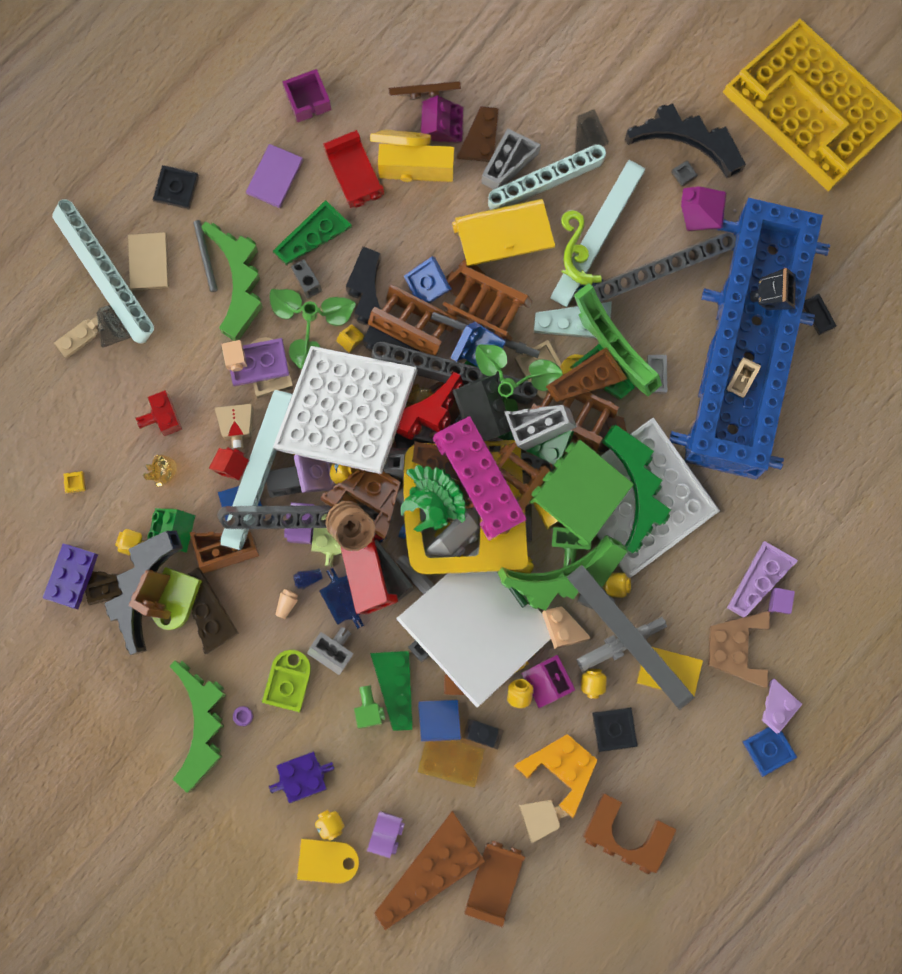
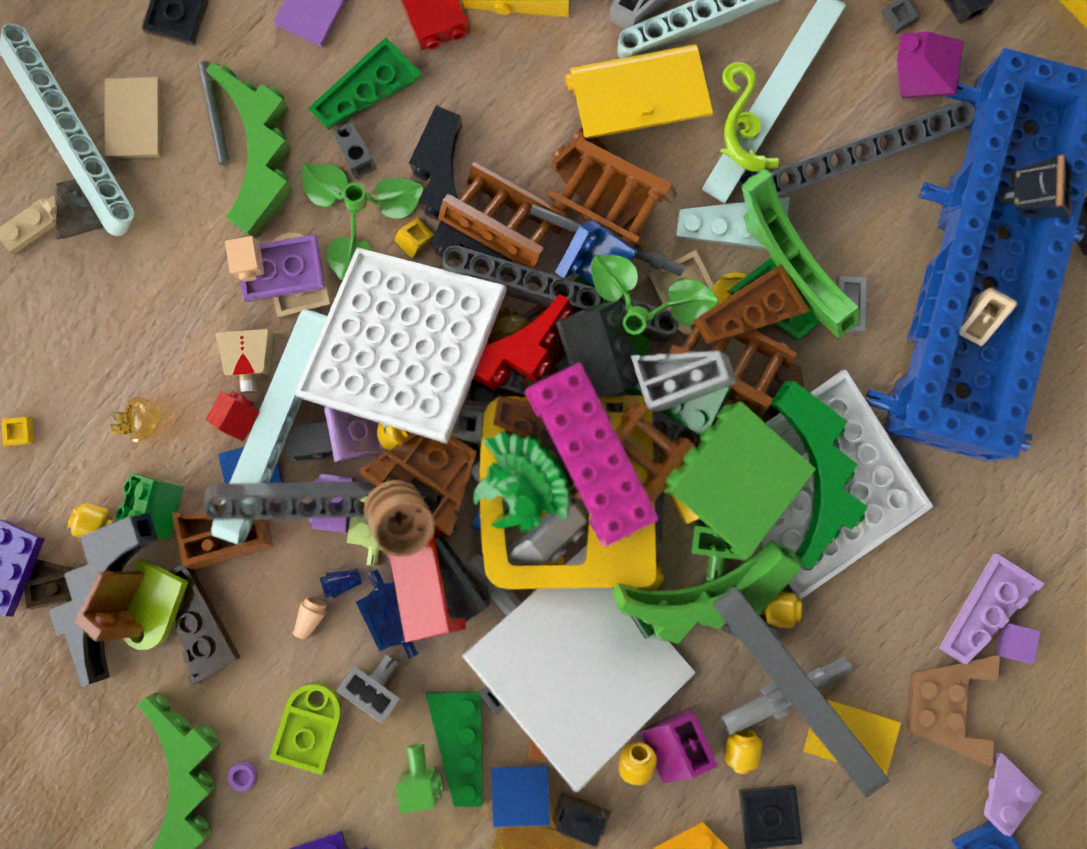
camera: 10 degrees right, 5 degrees up
(161, 414) = (142, 337): red brick -> none
(427, 281) = (527, 158): tile -> none
(563, 628) = (702, 668): light nougat wing -> none

